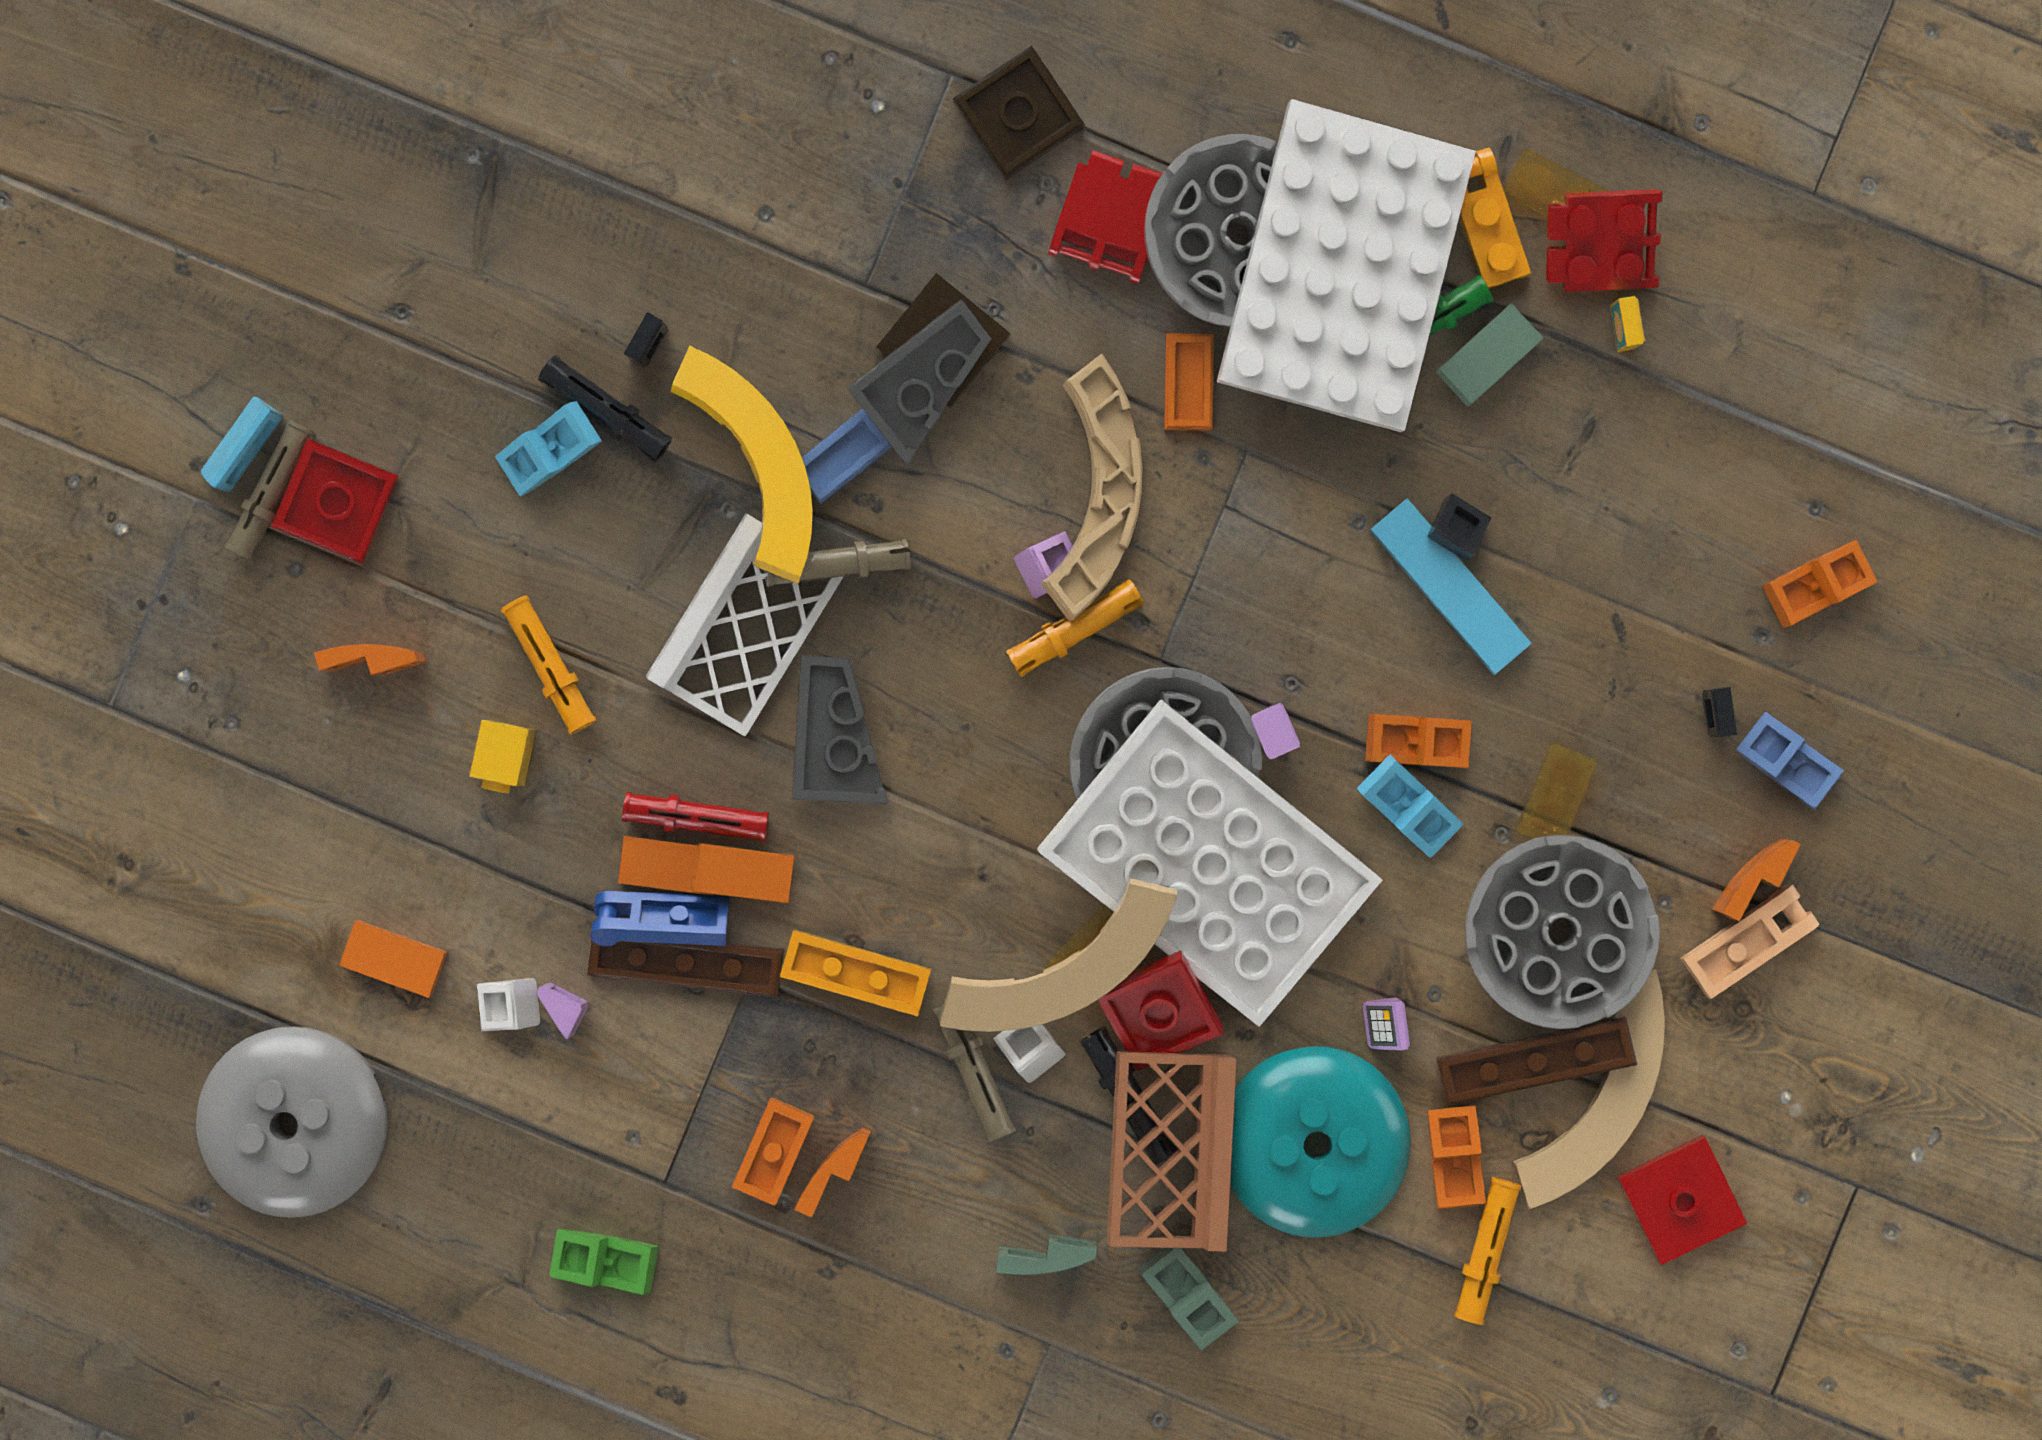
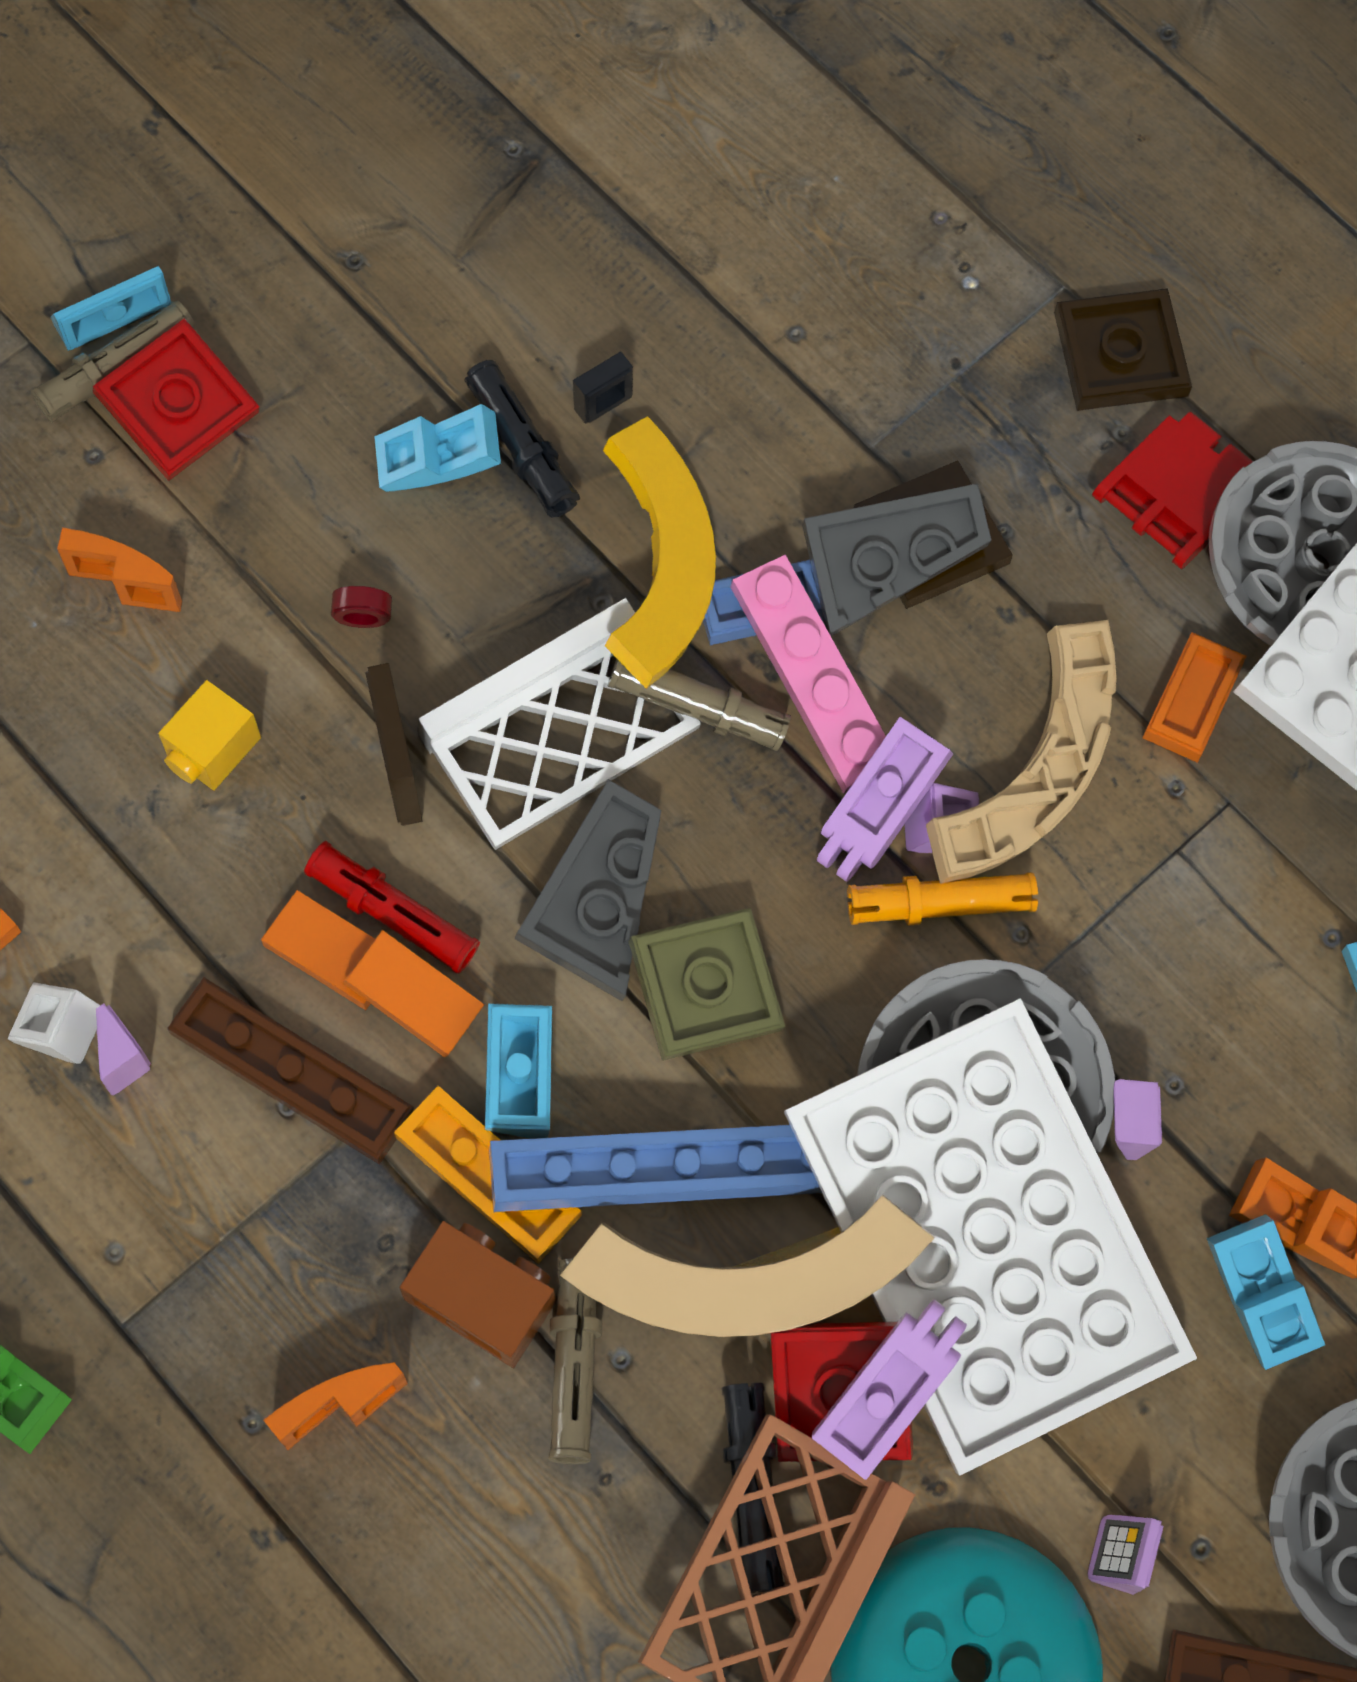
camera: 20 degrees right, 20 degrees down
(558, 603) = (361, 606): none -> dark red tile
(558, 682) = (315, 692): light orange pin -> none
(639, 705) = (393, 744): none -> dark brown tile
(660, 918) = (288, 1000): blue plate -> none
(773, 1151) = (275, 1344): orange plate -> none
(841, 893) = (518, 1070): none -> medium azure slope
(890, 1055) = (479, 1291): none -> dark orange brick
(908, 499) = (810, 668): none -> bright pink plate
(940, 769) = (706, 984): none -> olive tile
(959, 925) = (648, 1168): none -> medium blue plate
(1001, 574) = (882, 798): none -> lavender hinge
(1030, 1050) = (656, 1371): white slope -> none
(1061, 1255) = (568, 1650): sand green slope -> none
(1191, 1005) = (890, 1390): none -> lavender hinge

